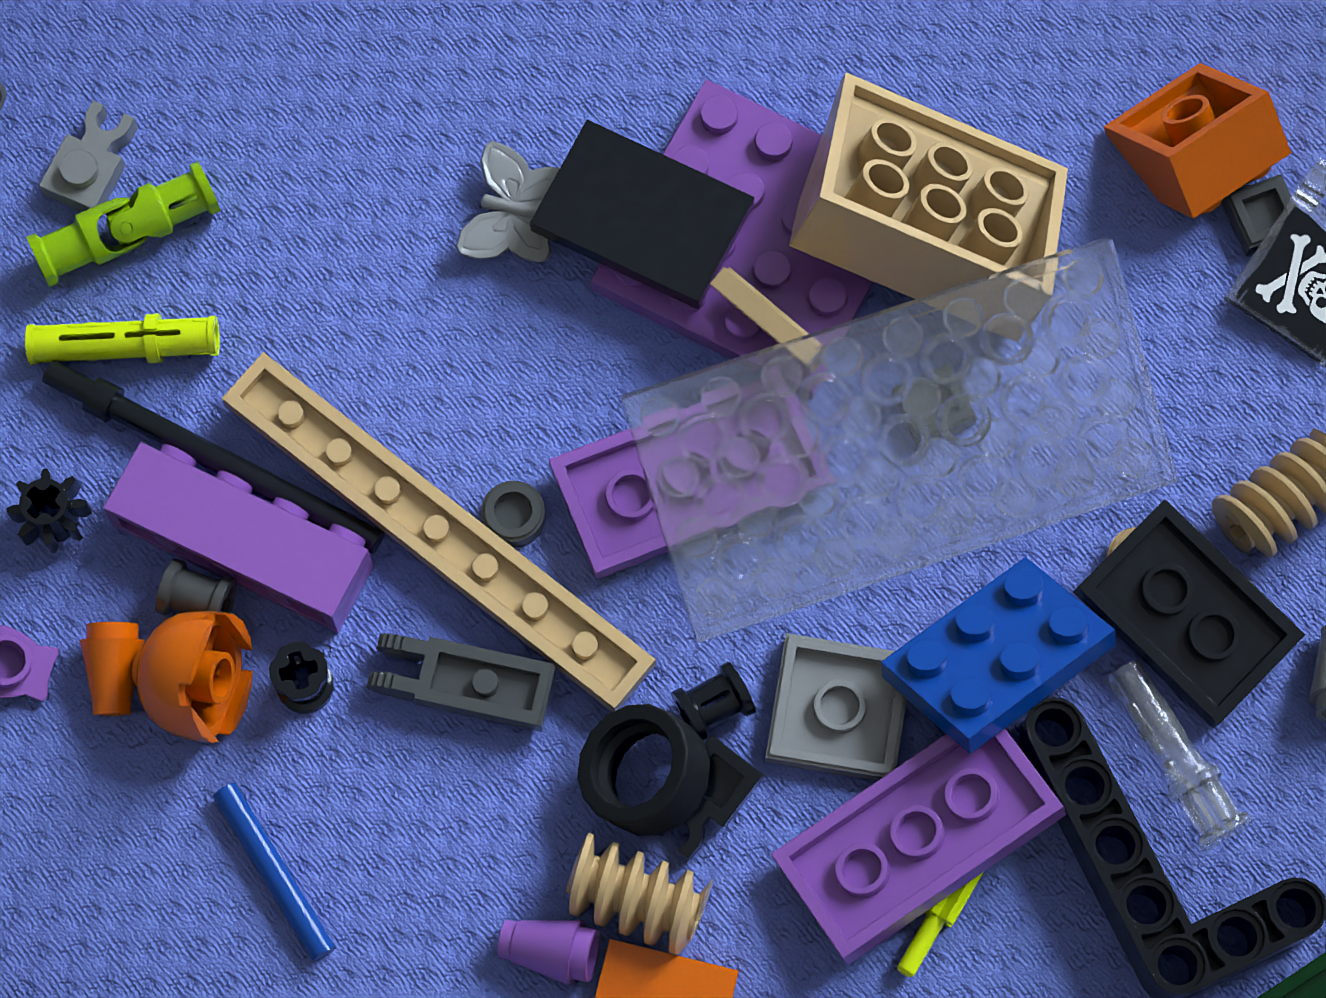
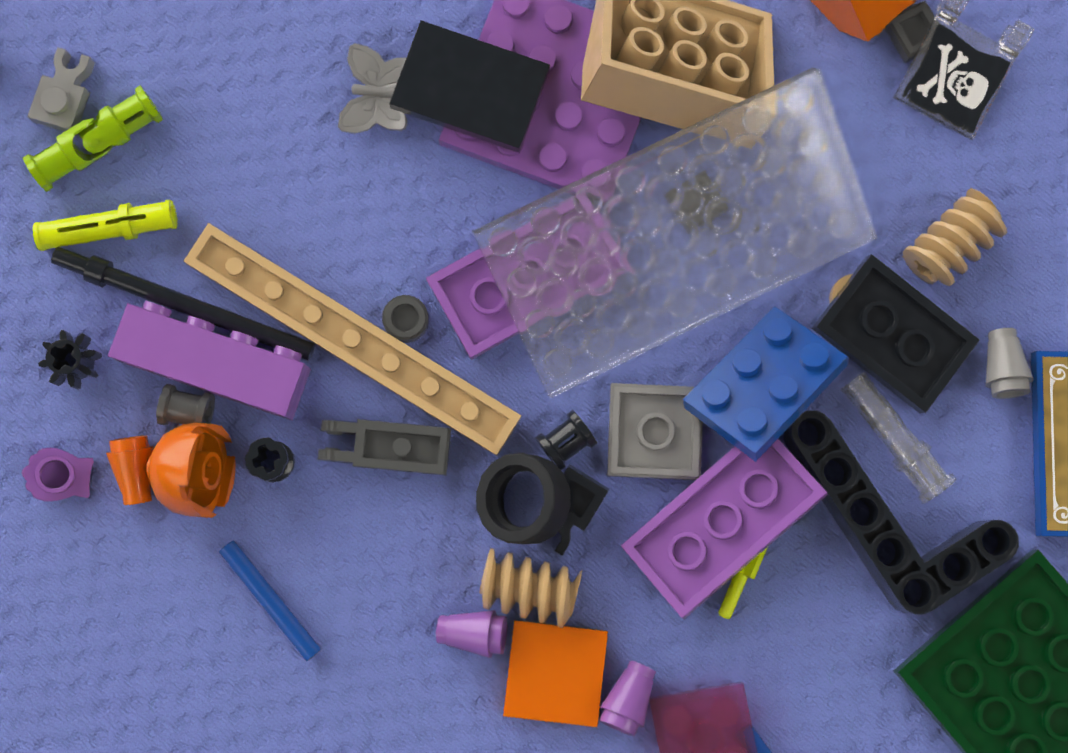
camera: 10 degrees left, 10 degrees up
(756, 306) = (564, 149): tan tile -> none

